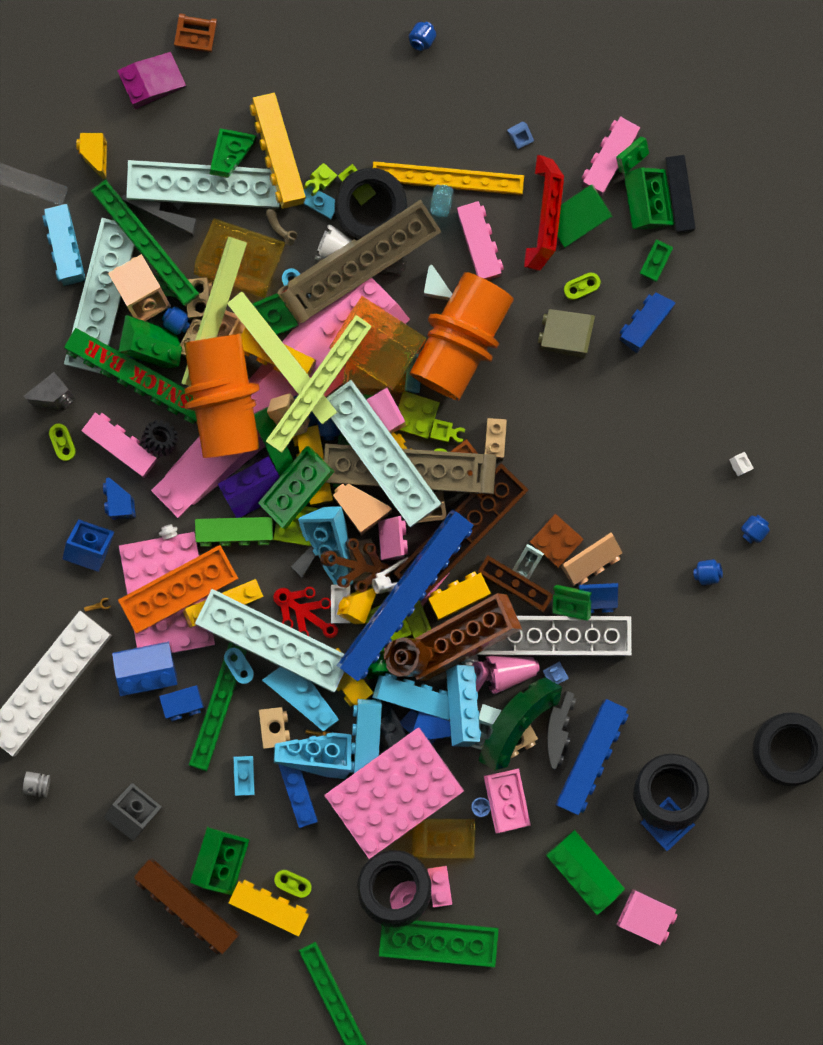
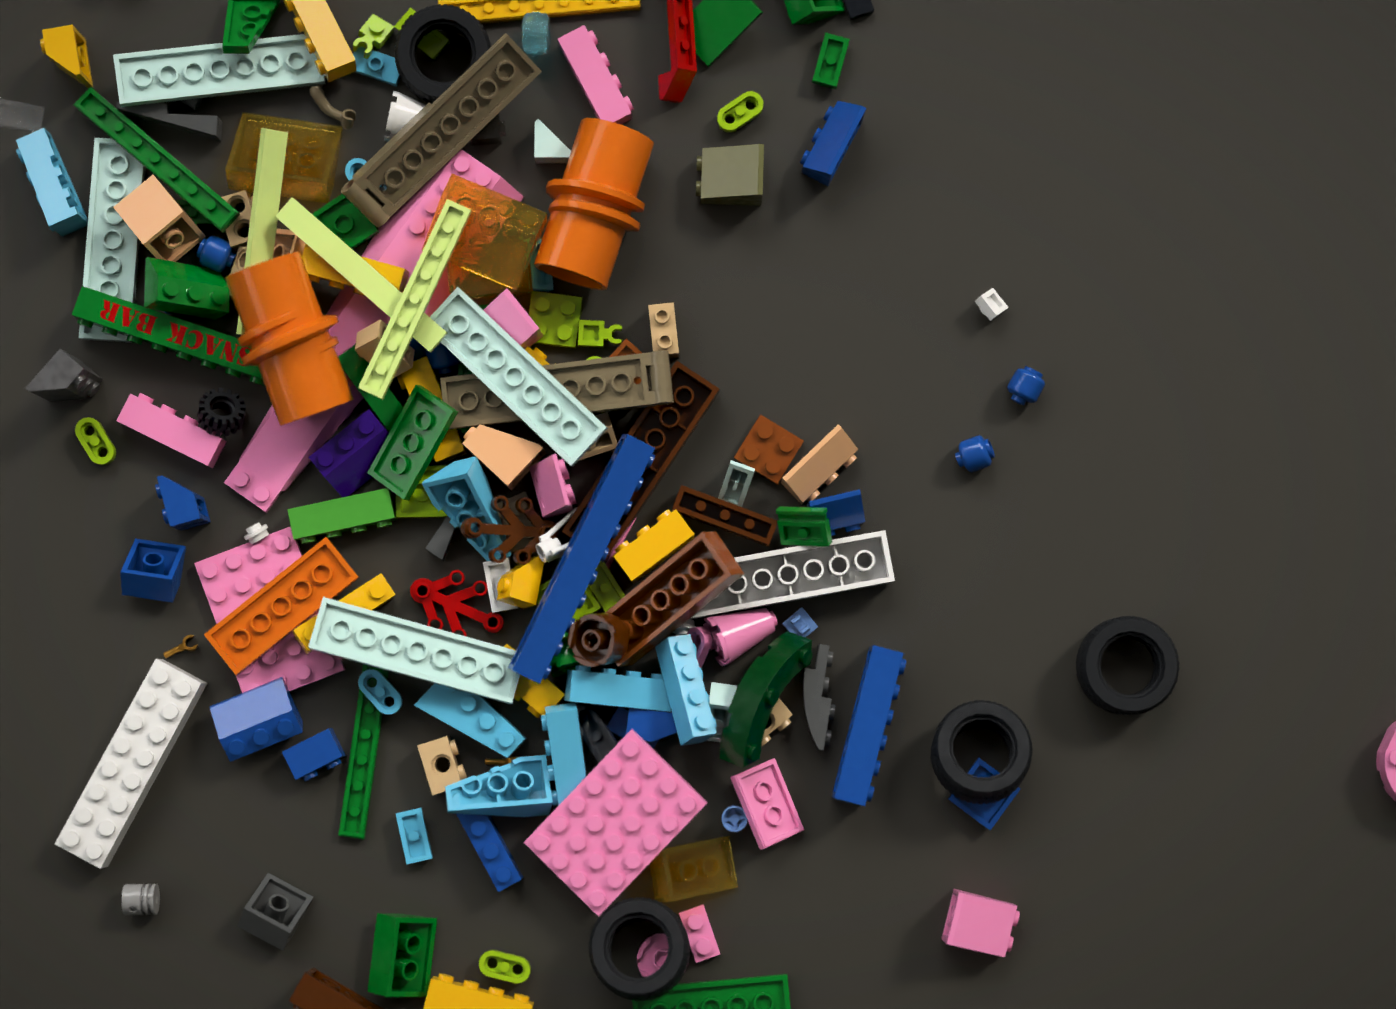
camera: 10 degrees left, 0 degrees up
(585, 872) = (888, 878): green slope -> none

